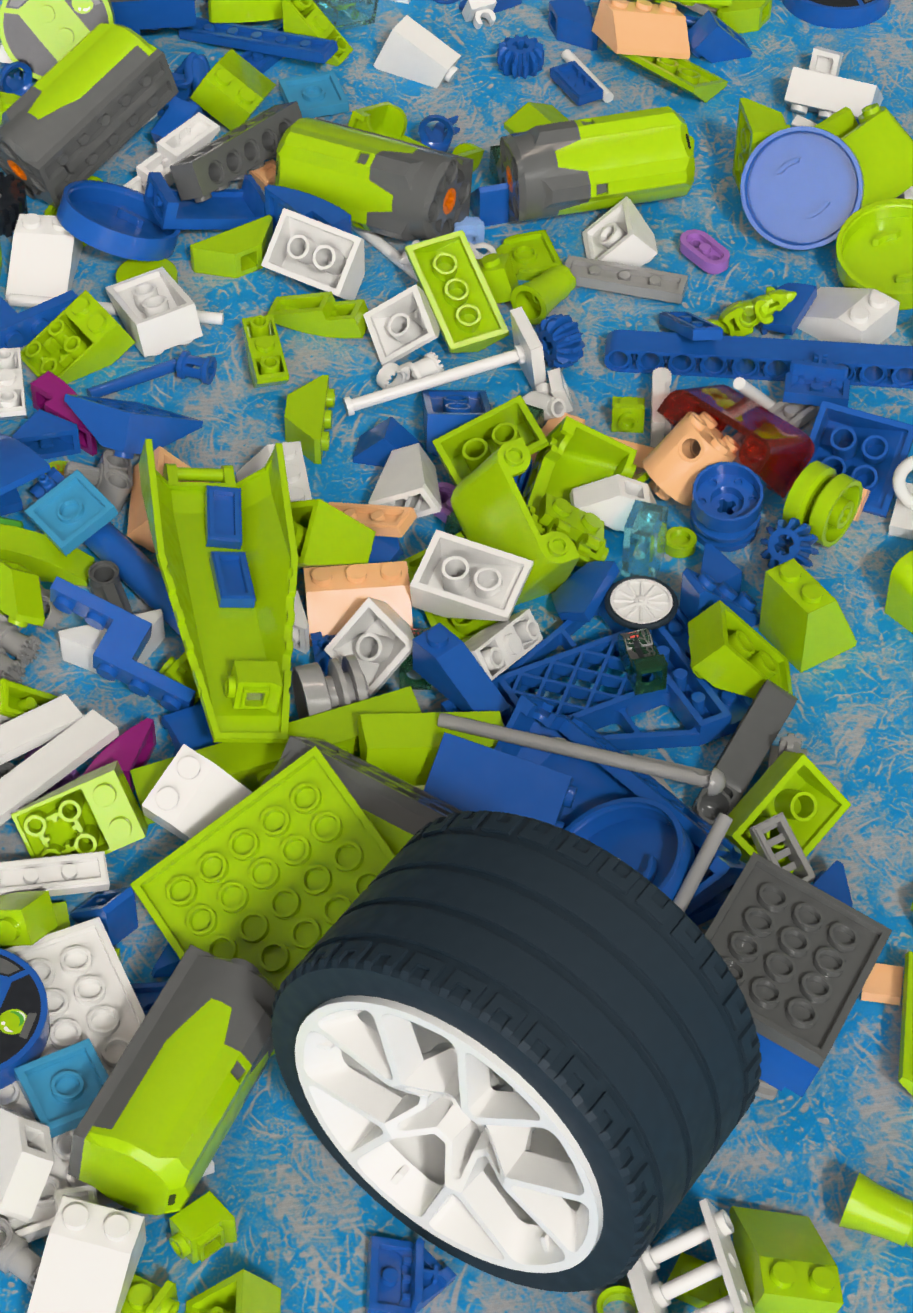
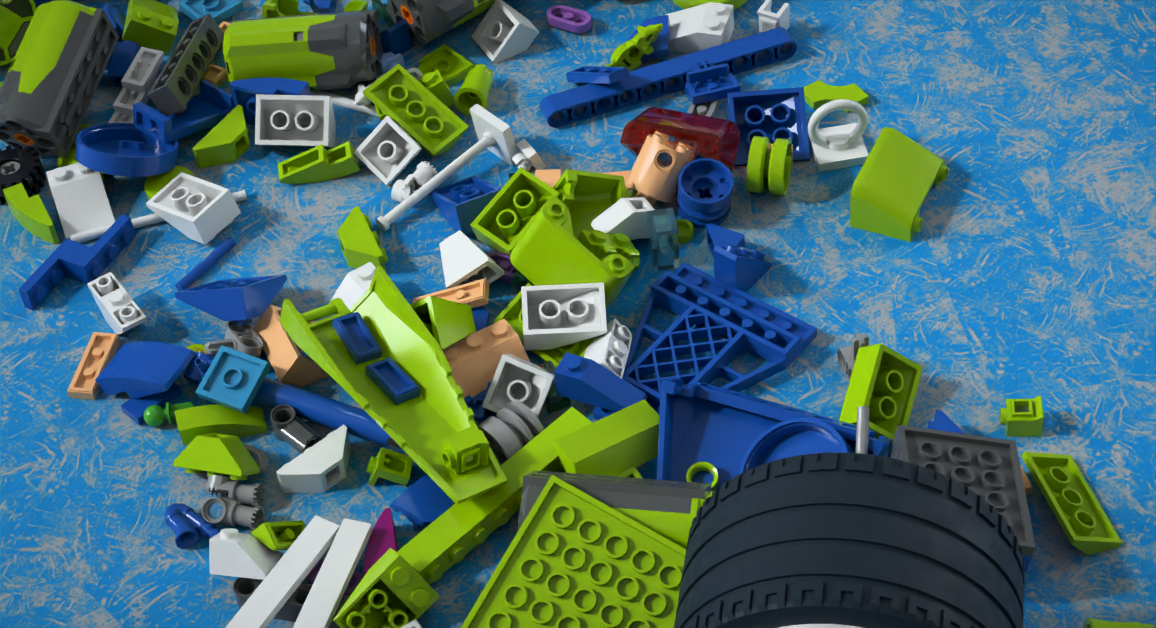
camera: 20 degrees left, 0 degrees up
(49, 395) = (161, 302): magenta slope -> none
(49, 435) = (172, 328): blue slope -> none
(77, 342) = (148, 252): lime slope -> none
(121, 645) = (335, 463): blue bracket -> none
(192, 794) = (466, 552): white slope -> none
(205, 373) = (241, 235): blue bush -> none
(264, 351) = (298, 207): lime slope -> none
(377, 443) = (425, 240): blue slope -> none
(491, 780) = (682, 453): blue panel -> none
(552, 406) = (535, 167): white cone -> none
(560, 340) = (513, 115): blue gear -> none
(584, 591) = (642, 291): blue slope -> none
(628, 279) = (528, 58): light grey plate -> none
(628, 414) = (588, 154): lime bracket -> none
(641, 603) = (689, 283): white wheel -> none
(642, 657) = (719, 323): clear green leg -> none
(660, 390) = (608, 141): white hinge -> none
(713, 780) = (829, 387): light grey bar -> none
(734, 654) = (778, 295): lime slope -> none
(746, 749) = (824, 359): dark grey piece -> none
(753, 393) = (675, 105): white bar -> none
(780, 539) = (754, 204): blue gear -> none
(792, 848) = (901, 415): light grey slope -> none
(802, 617) = (805, 250): lime slope -> none

